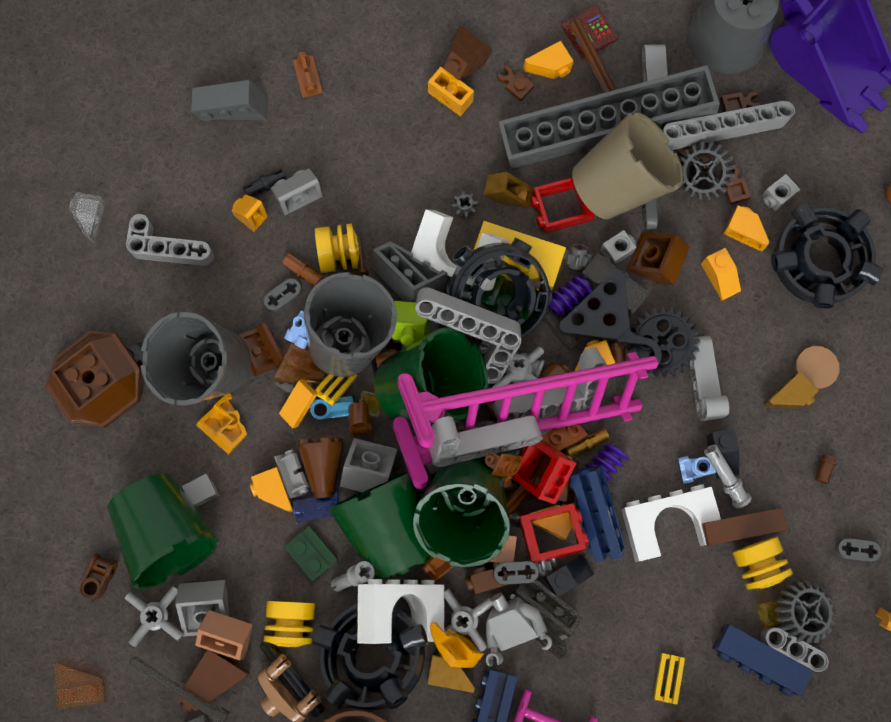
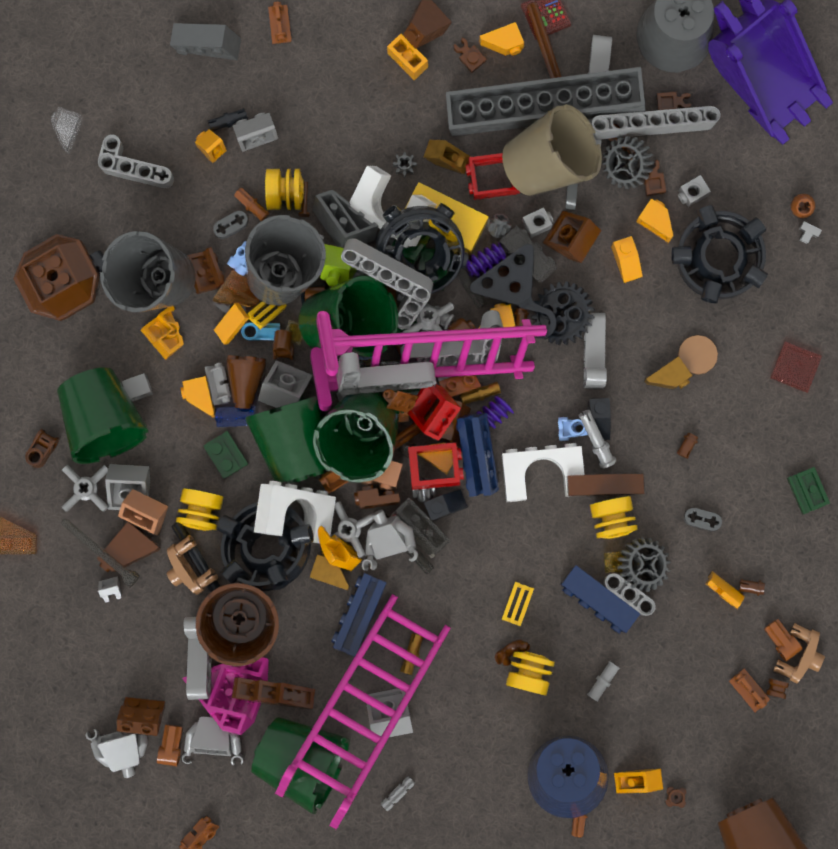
camera: 15 degrees right, 5 degrees up
(355, 575) = (260, 476): light grey pin -> none
(515, 566) = (394, 498): dark grey beam -> none

